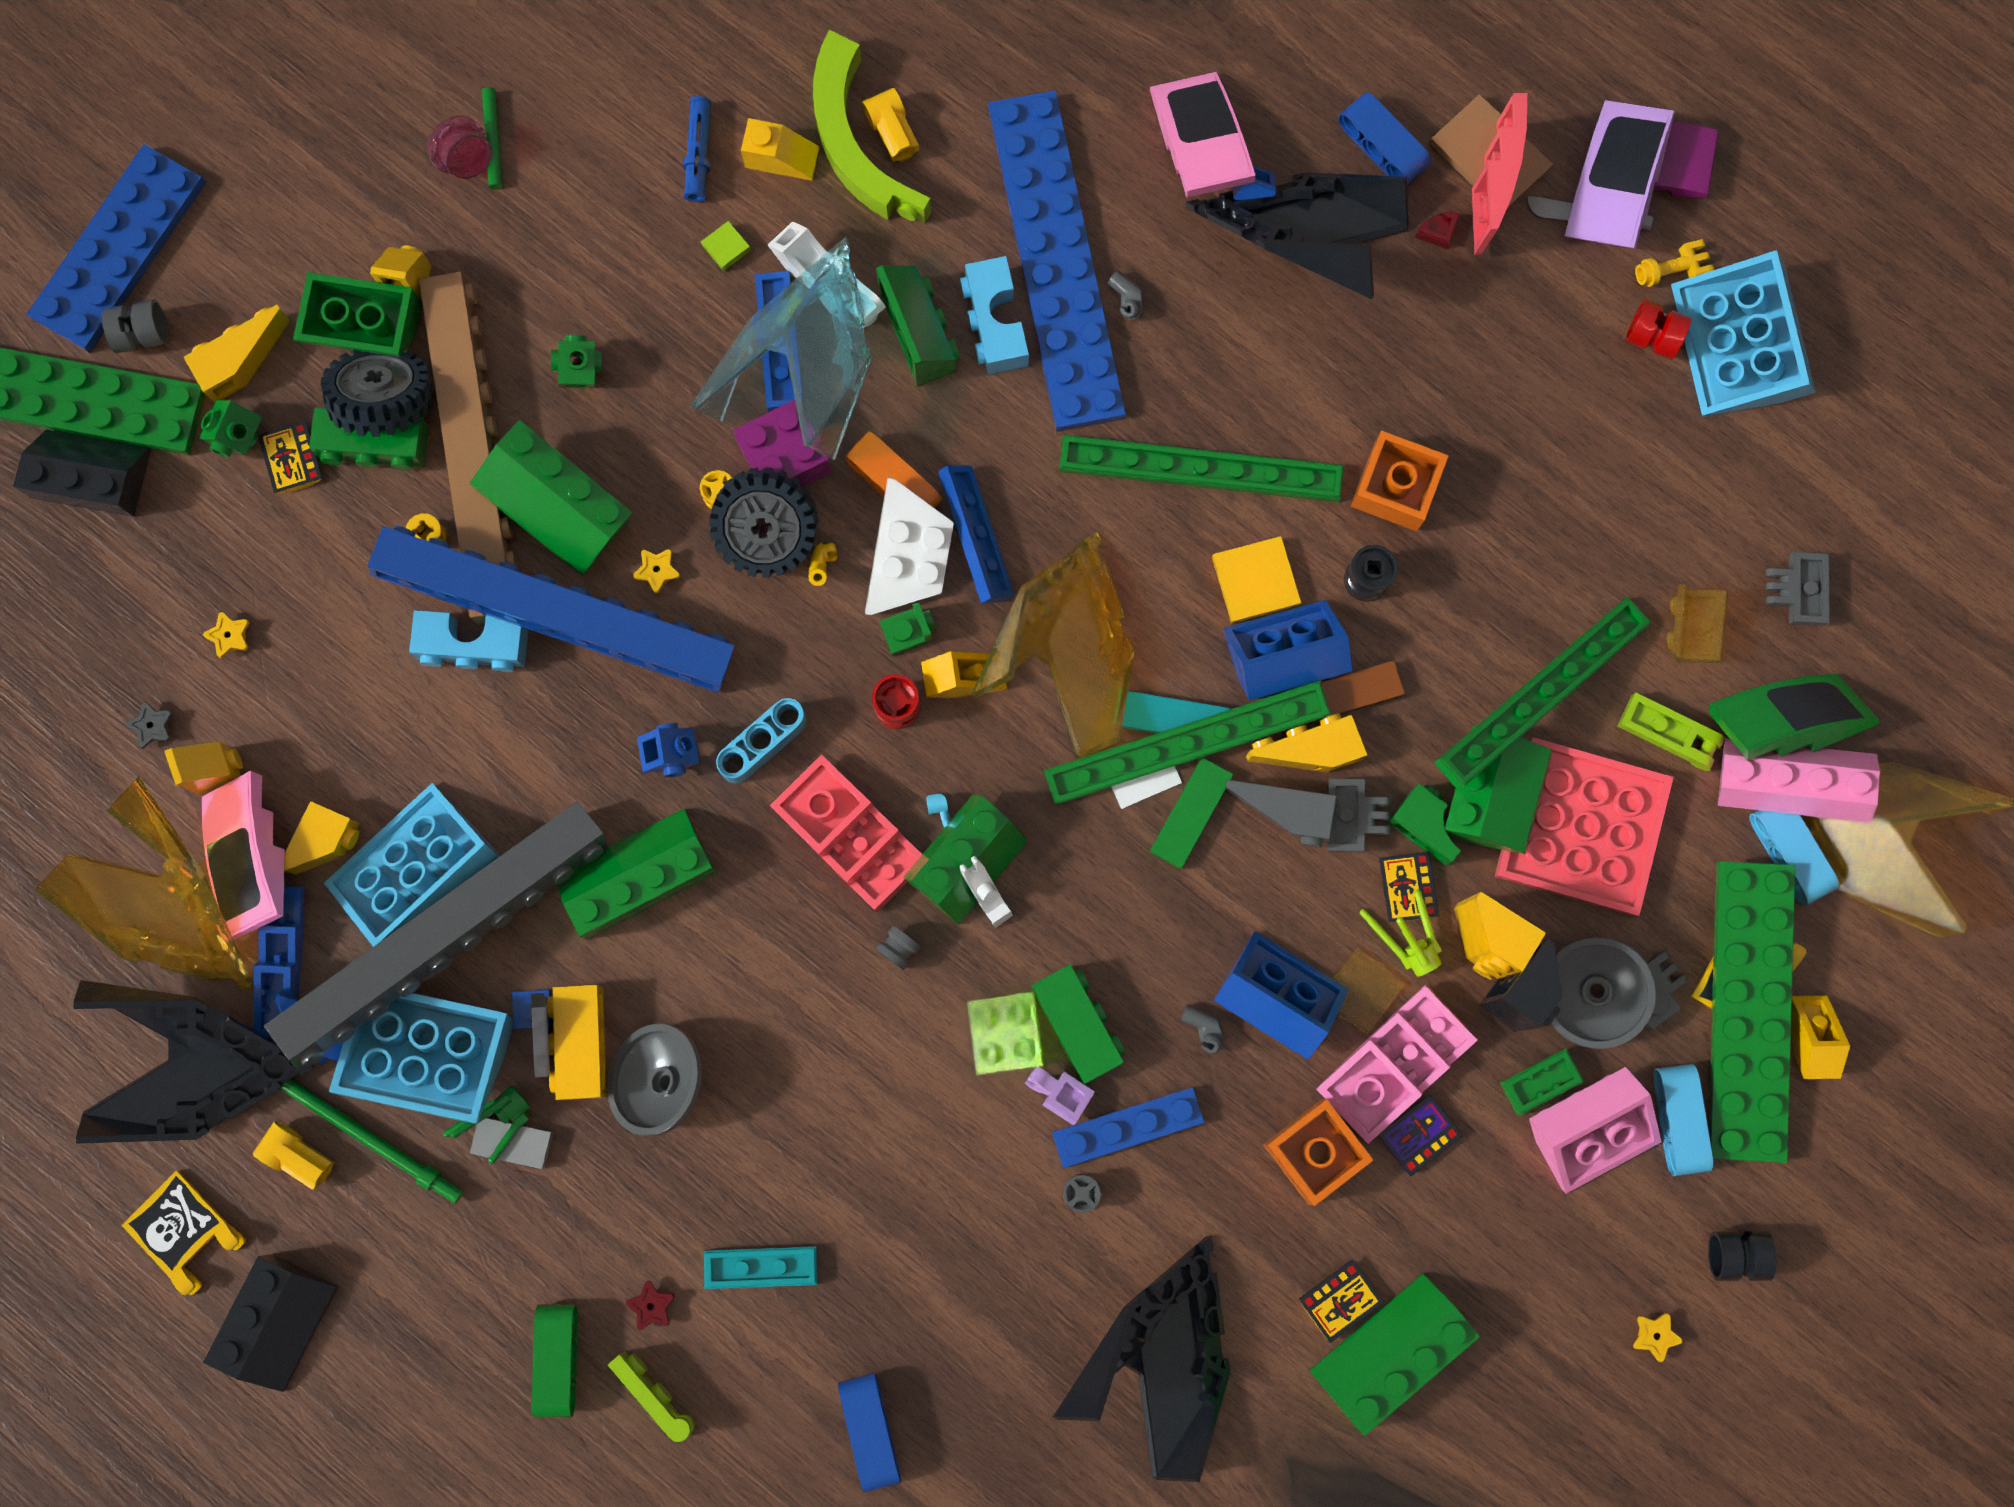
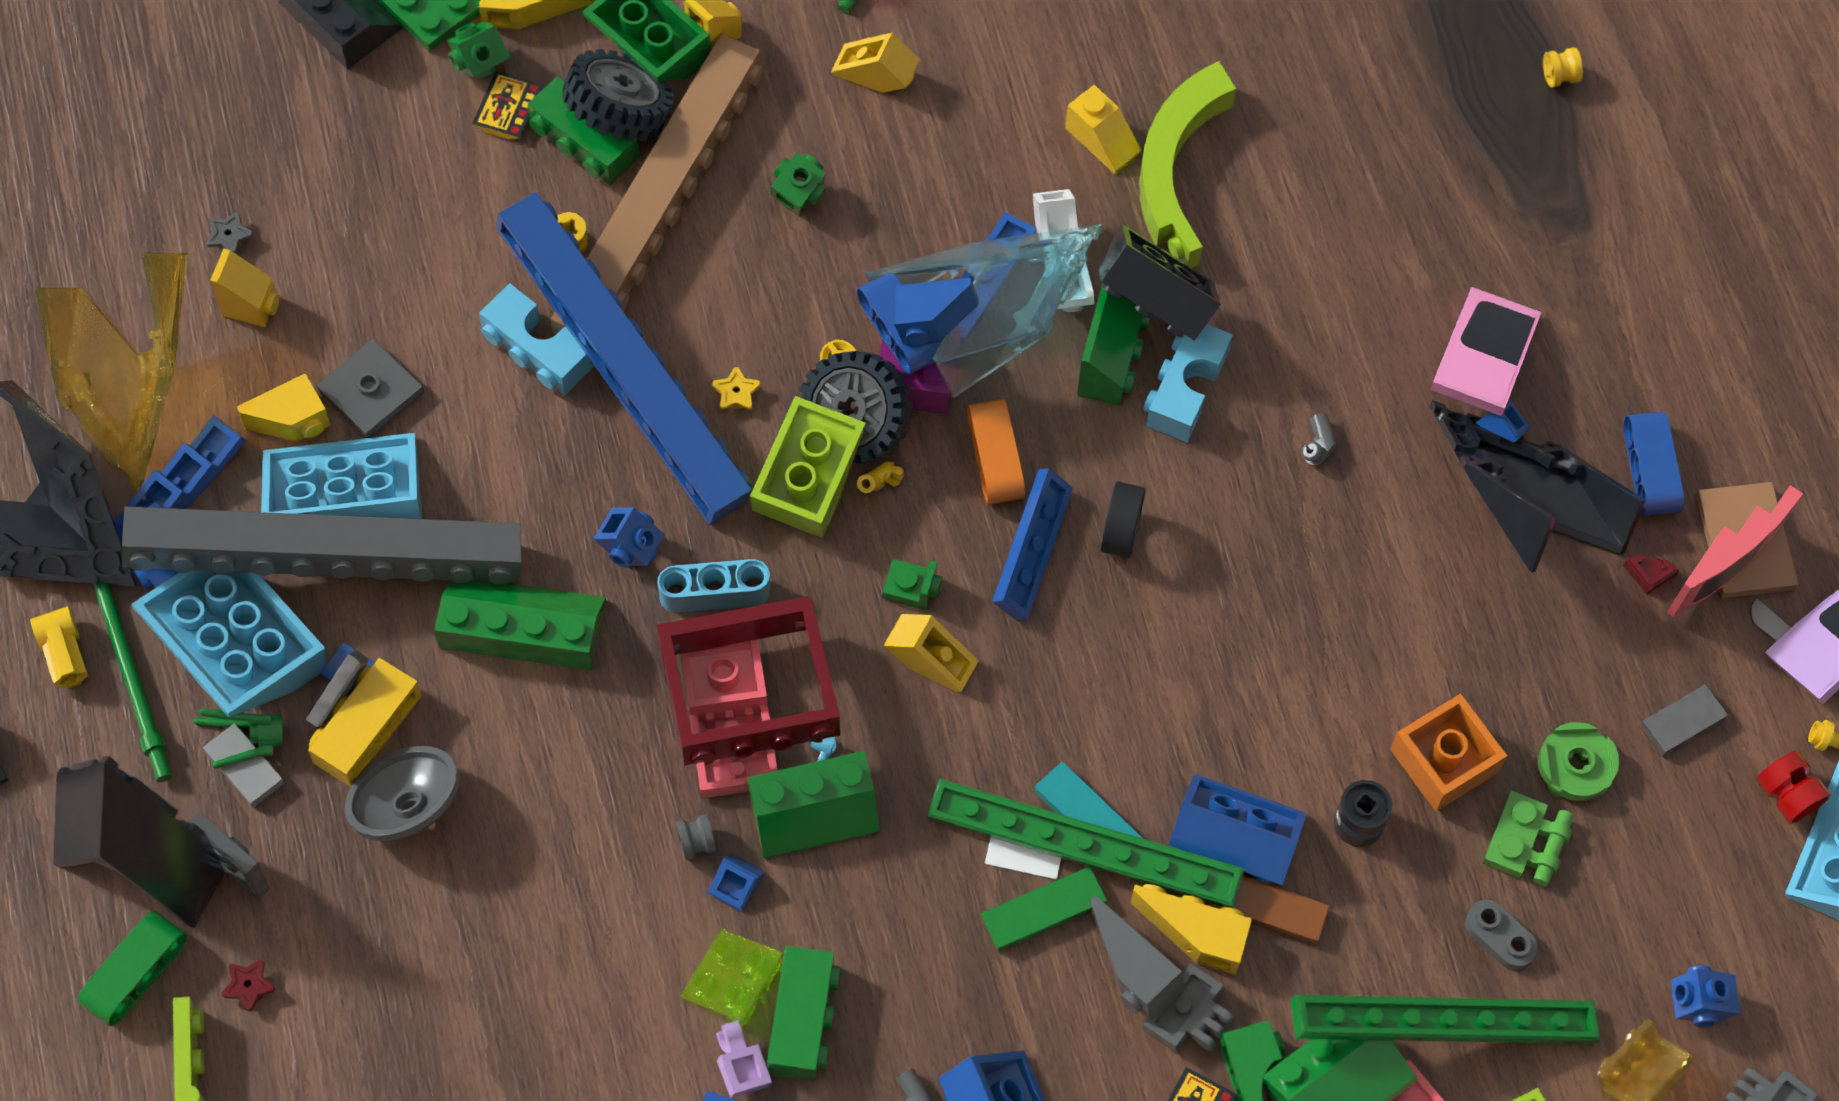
camera: 35 degrees right, 15 degrees down
(235, 642) = (346, 215): yellow plate -> none
(241, 855) = (216, 378): slope -> none
(368, 772) = (369, 388): none -> dark grey plate
(486, 1280) = (133, 831): none -> black windscreen
(550, 498) = (692, 271): green slope -> none
(559, 216) = (877, 63): none -> yellow slope
(561, 1224) = (234, 857): none -> dark grey plate
(695, 185) = (1025, 96): blue pin -> none
(725, 246) = (999, 176): lime tile -> none
(750, 430) = (878, 303): none -> blue beam
(760, 1267) = (366, 1022): teal tile -> none
(763, 594) = (807, 467): none -> lime slope
(775, 406) = (932, 309): none -> blue slope
(810, 762) = (739, 627): none -> dark red window
(888, 116) = (1217, 165): yellow piece -> none
(896, 701) = (854, 631): red wheel -> none
(908, 550) = (962, 516): white wing -> none
(926, 256) = (1158, 284): none -> black slope
(951, 957) = (736, 881): none -> blue slope
(986, 892) = (807, 841): white piece -> none
(1032, 467) = (1122, 519): none -> black tyre
(1056, 261) = (1276, 375): blue plate -> none
(1073, 626) = (1061, 676): clear yellow windscreen -> none
(1201, 468) = (1278, 628): green tile -> none
(1256, 580) = (1255, 753): yellow tile -> none
(1486, 509) = (1516, 833): none -> bright green plate
(1491, 399) = (1592, 746): none -> bright green plate
(1528, 594) = (1497, 937): none -> dark grey plate
(1542, 331) = (1683, 720): none -> flat silver tile
(1705, 537) = (1705, 996): none -> blue brick

